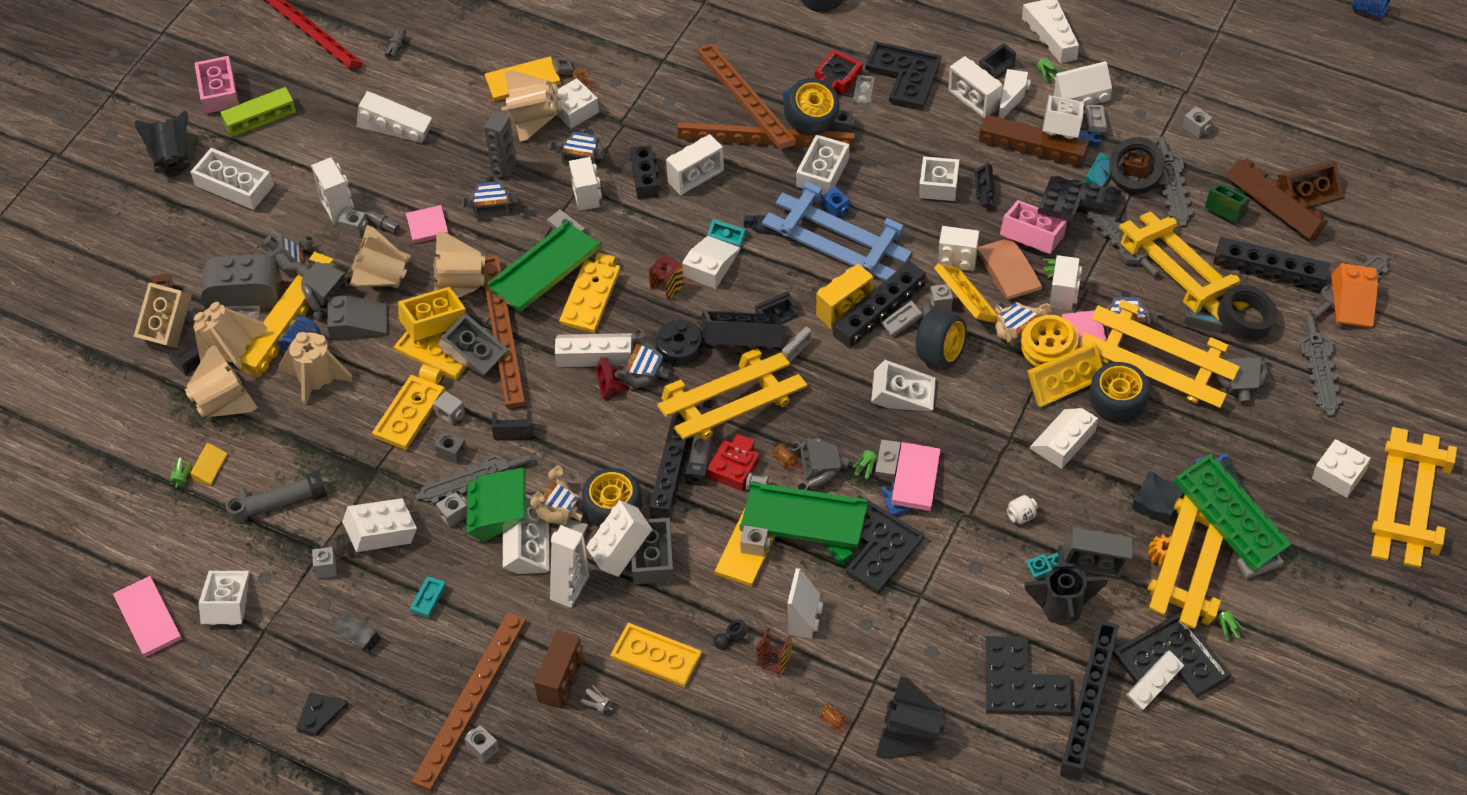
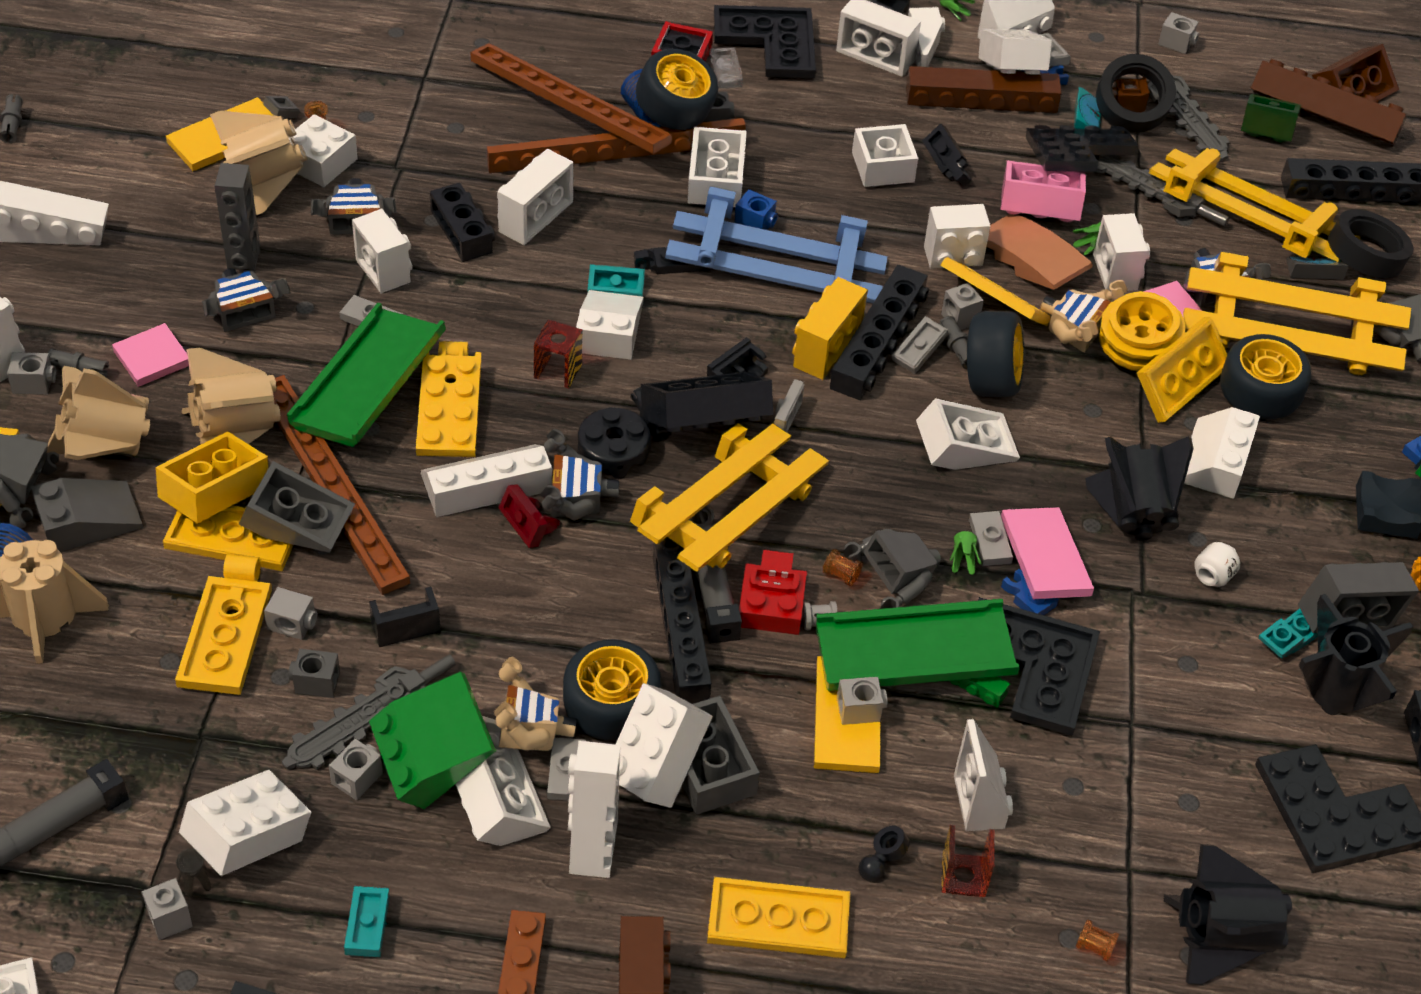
camera: 25 degrees left, 5 degrees down
(993, 447) = (1143, 486): none -> black brick

